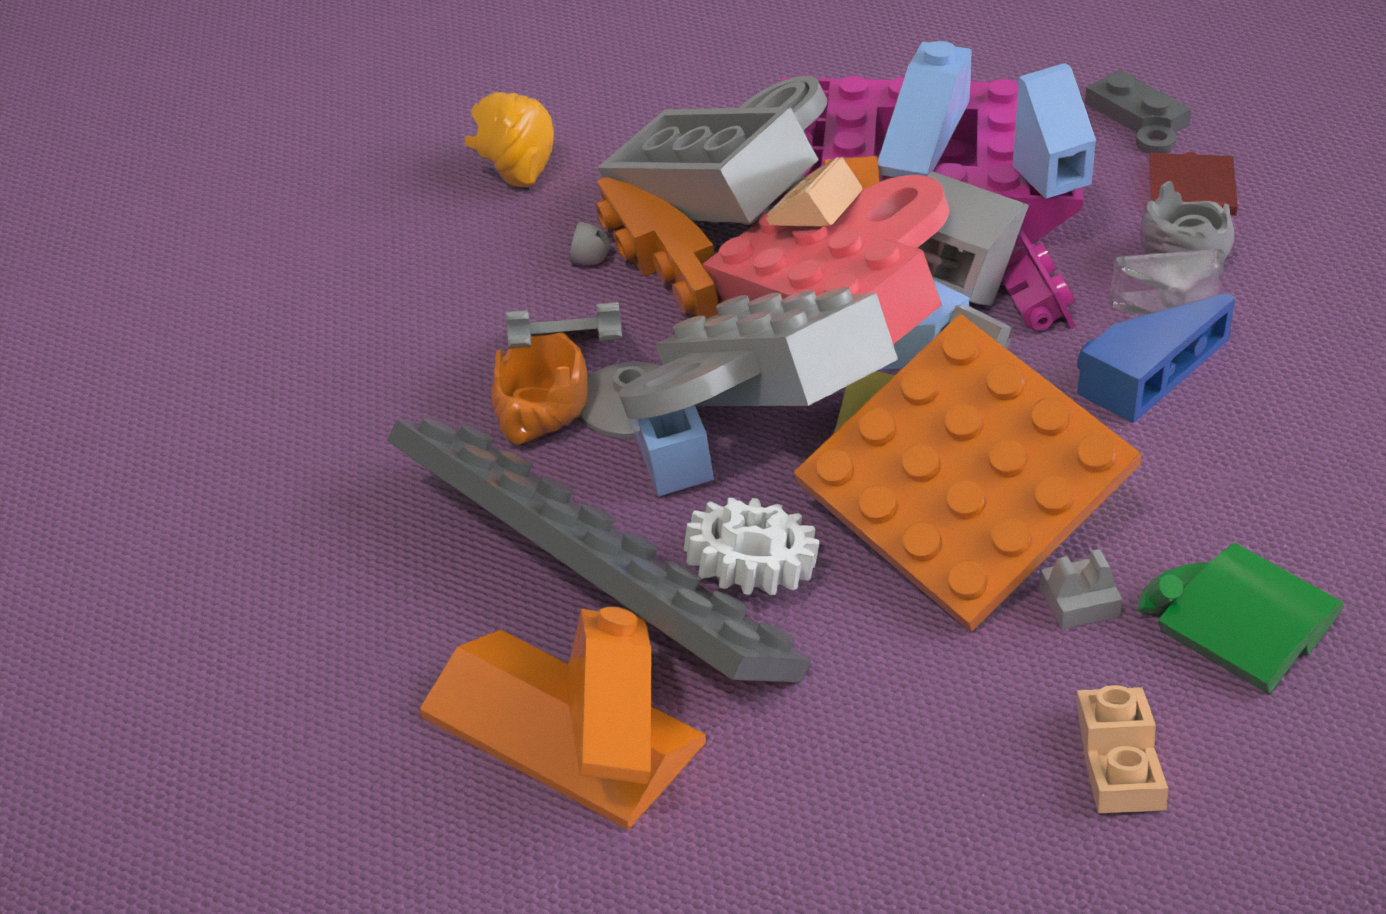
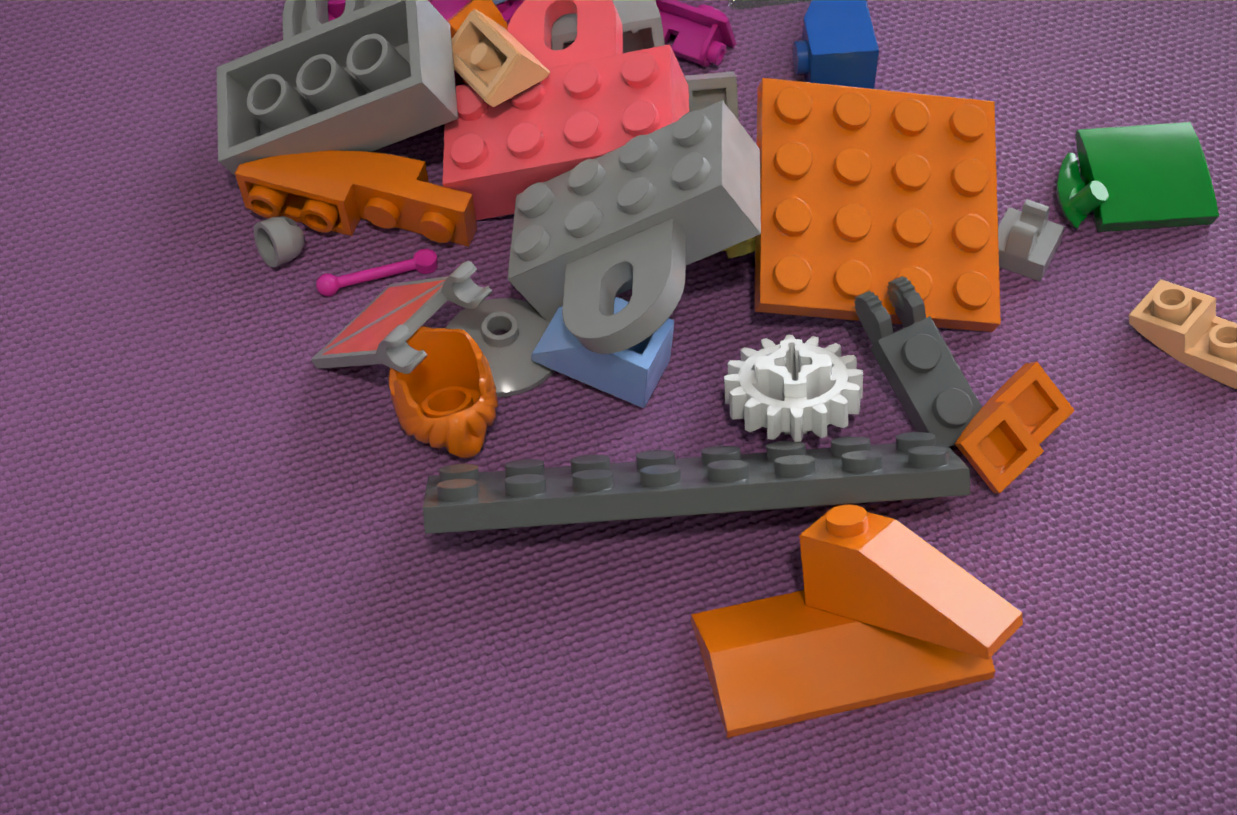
camera: 50 degrees left, 10 degrees up
(514, 135) = (84, 182): light orange hair -> none
(659, 318) = (423, 262): none -> dark pink hinge
(851, 603) = (918, 363): none -> dark grey hinge
(865, 687) = (1013, 425): none -> orange slope

